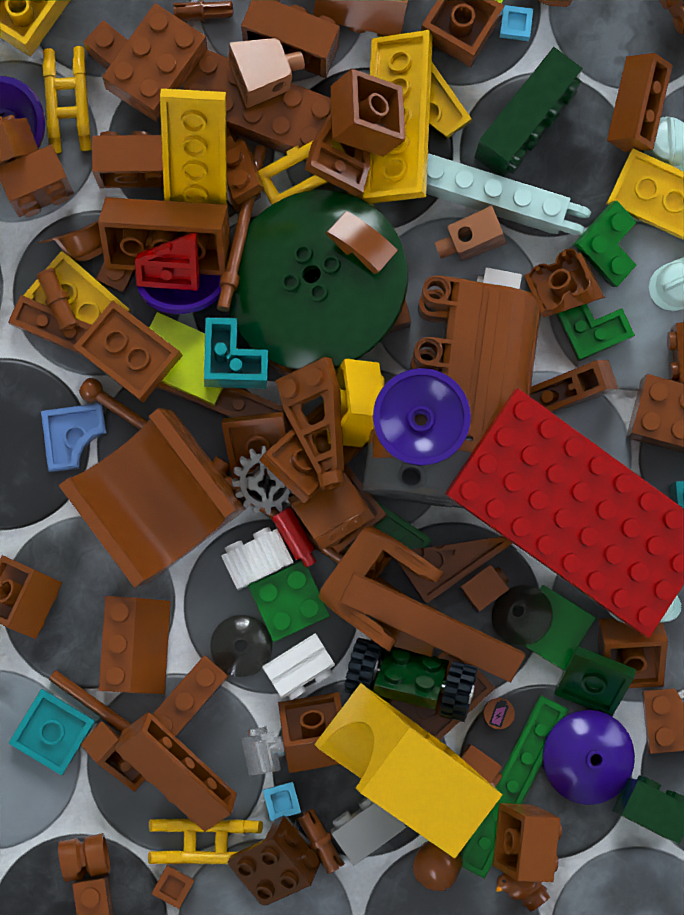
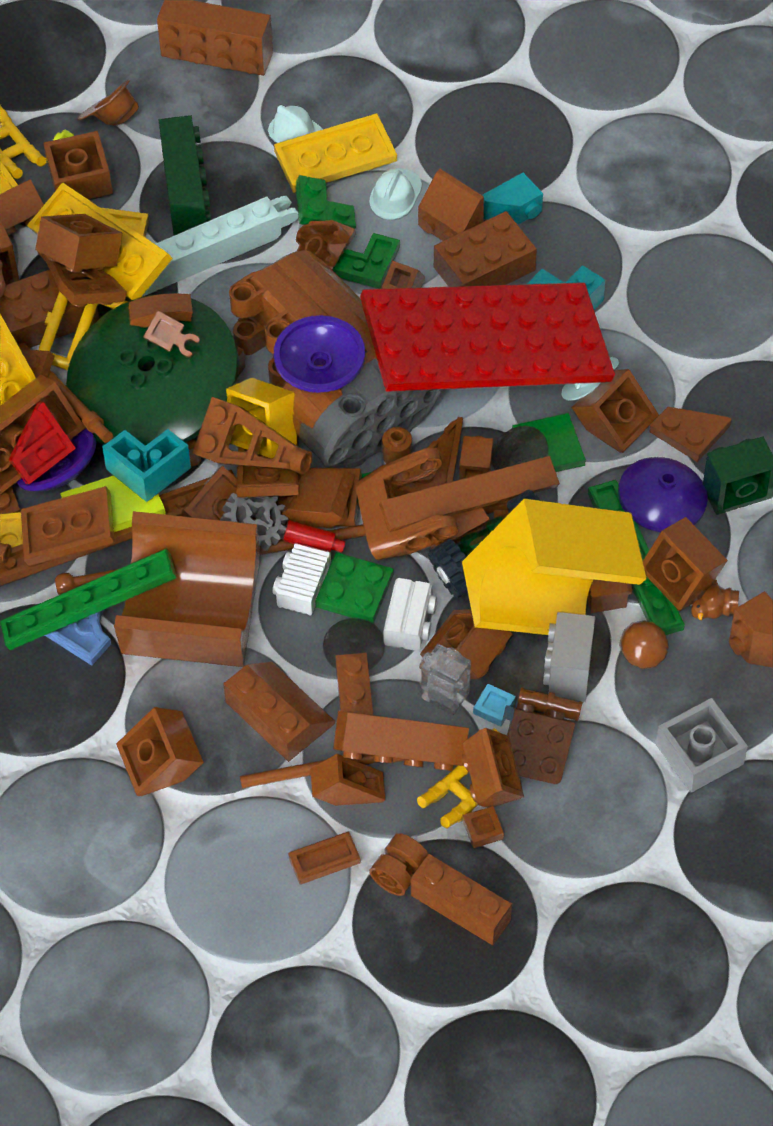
camera: 40 degrees left, 25 degrees down
(47, 792) = (324, 858): none -> dark orange tile
(52, 732) = (282, 813): teal plate -> none
(85, 428) = (88, 599): none -> green tile
(211, 864) = (491, 768): none -> dark orange slope
(342, 271) = (167, 332): none -> plate
(427, 525) = (396, 444): none -> dark orange brick
(485, 235) = (227, 265): nougat torso -> none
(516, 23) = (116, 145): medium azure plate -> none
(594, 681) = (611, 441): dark green plate -> none
(639, 102) = (248, 117): dark orange brick -> none

